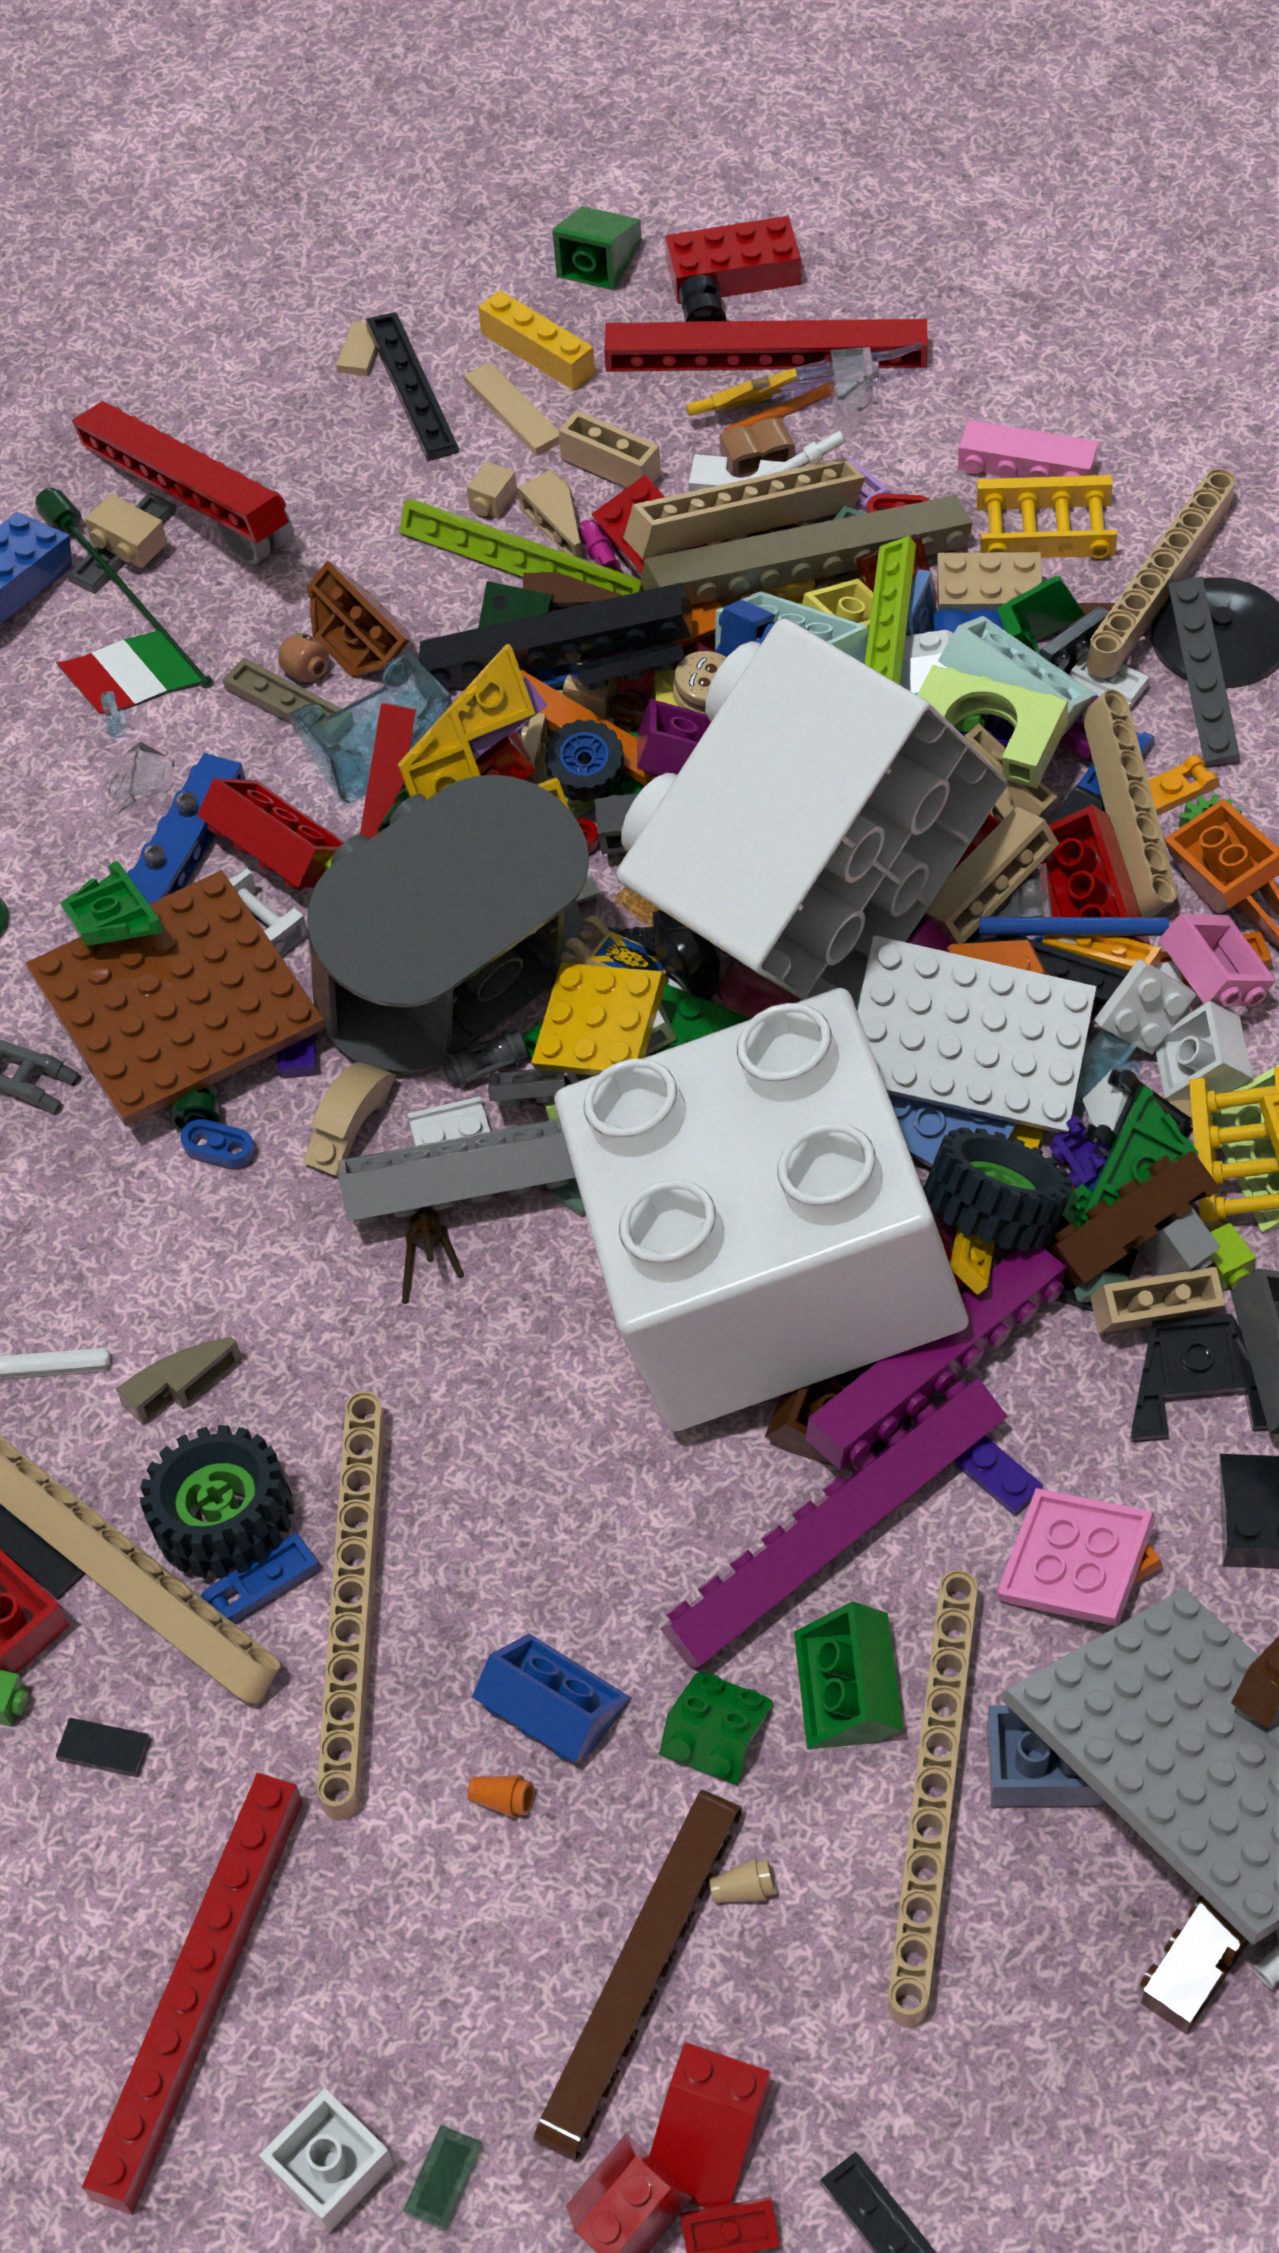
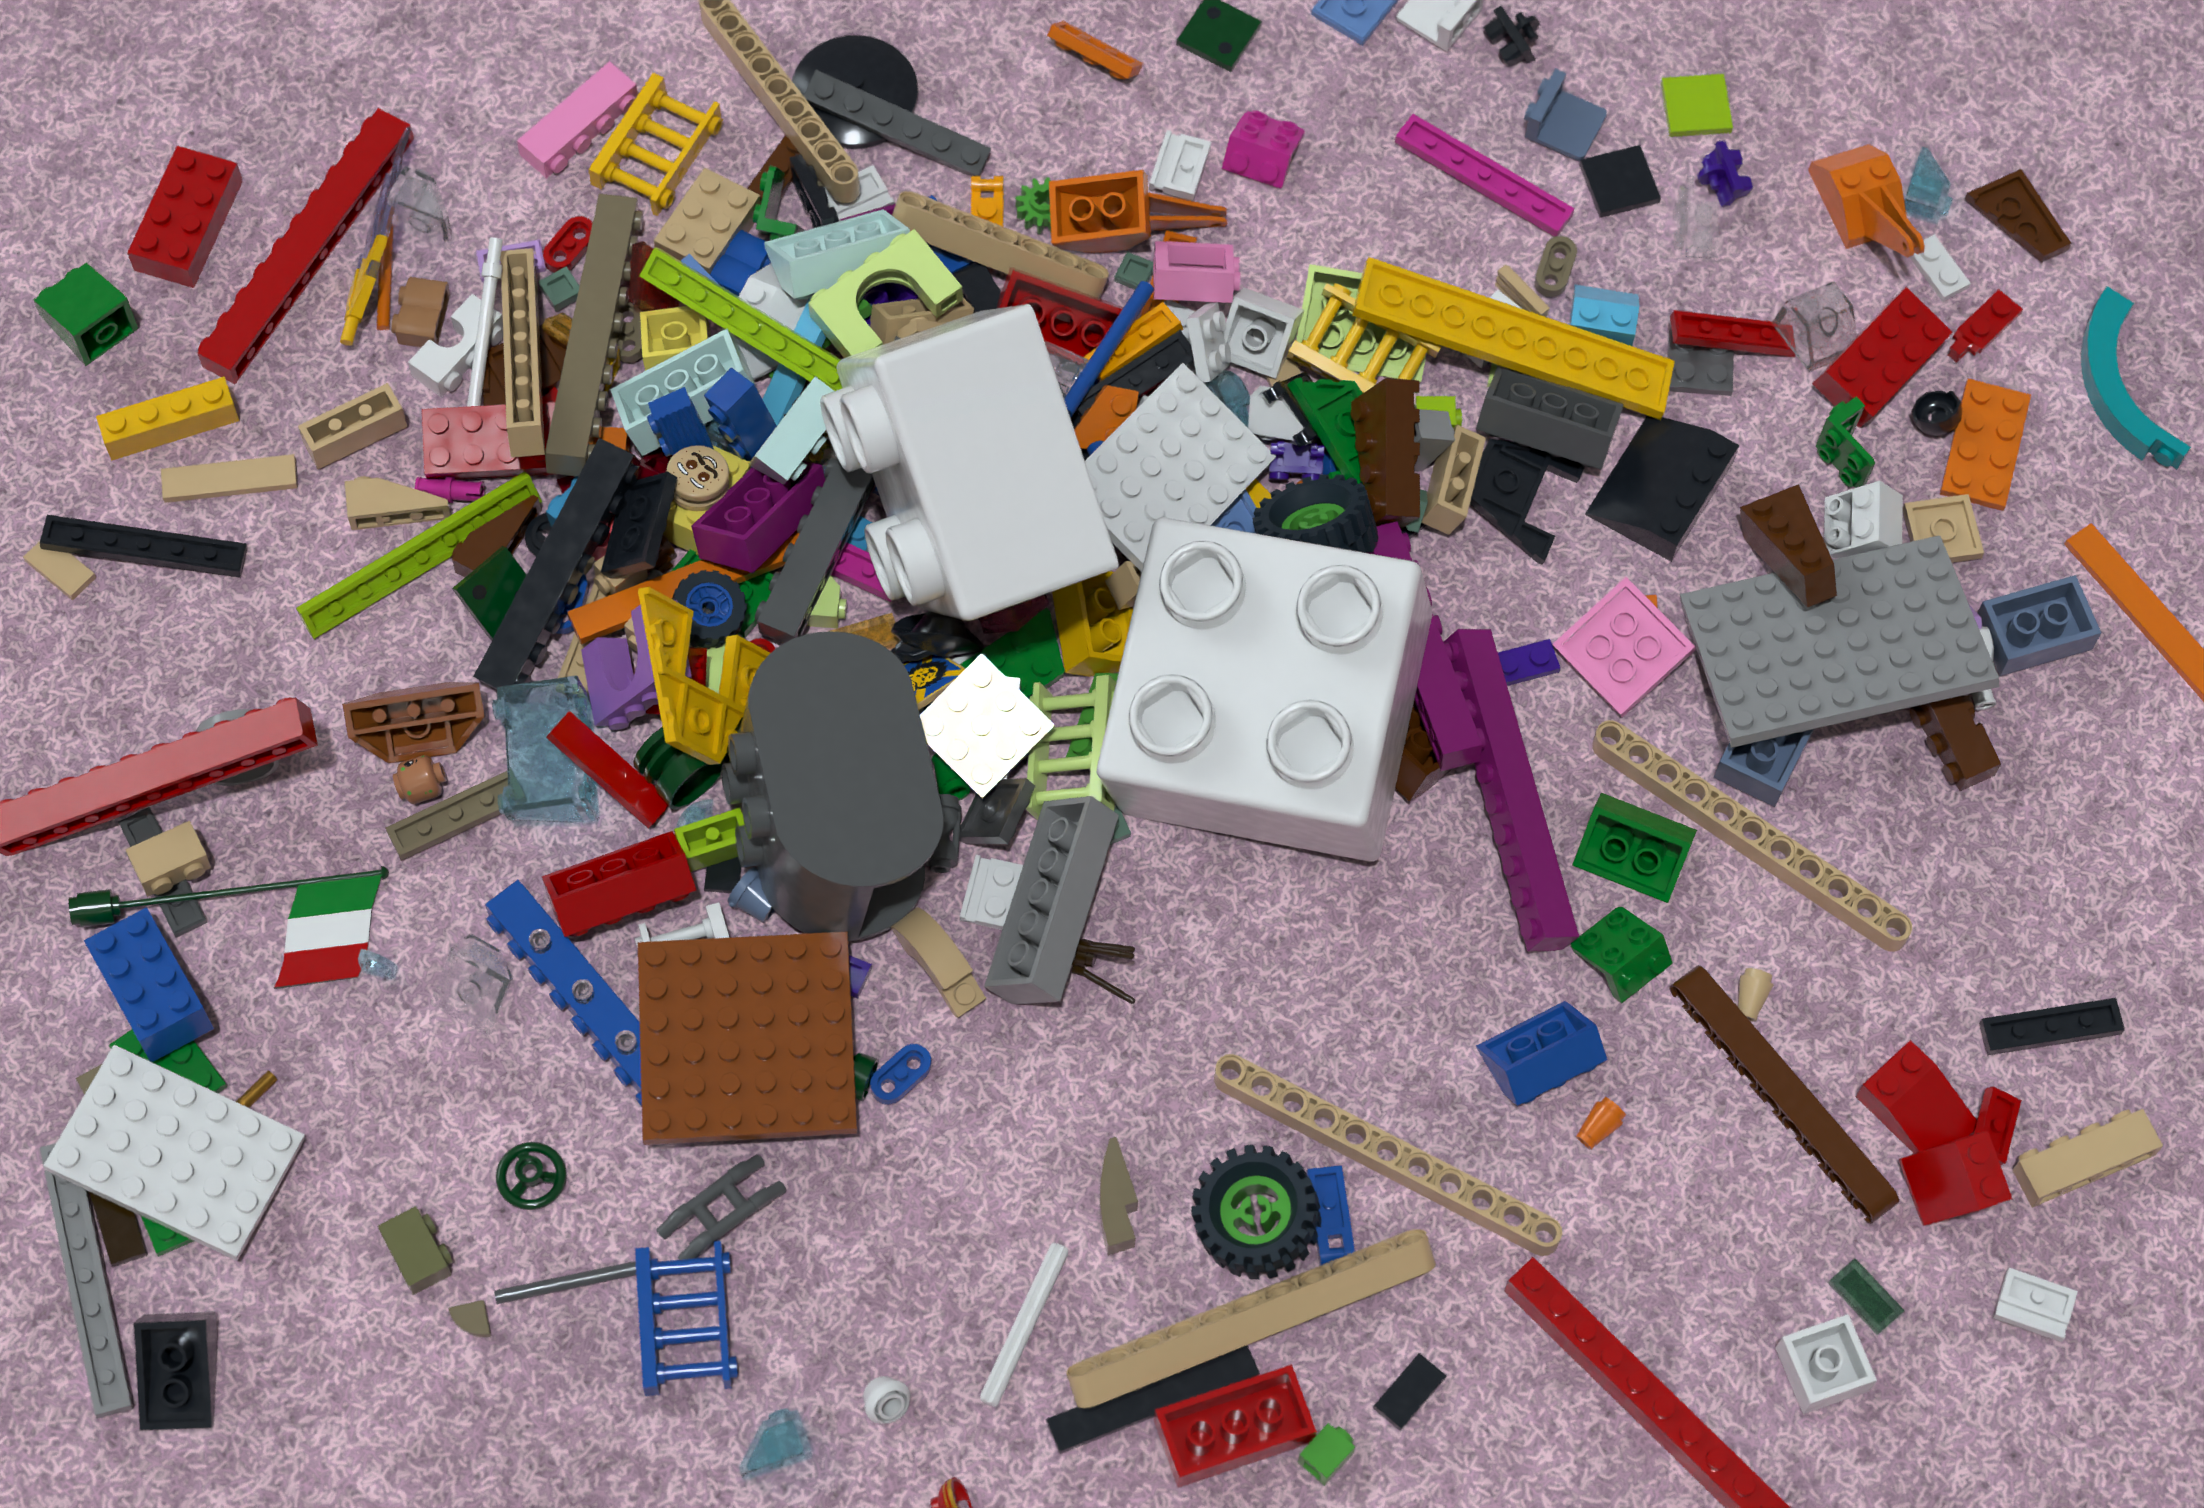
camera: 70 degrees left, 10 degrees up
(110, 910) = (639, 1044): green wing -> none
(492, 490) = (325, 541): tan brick -> none
(701, 299) = (218, 266): black wheel -> none

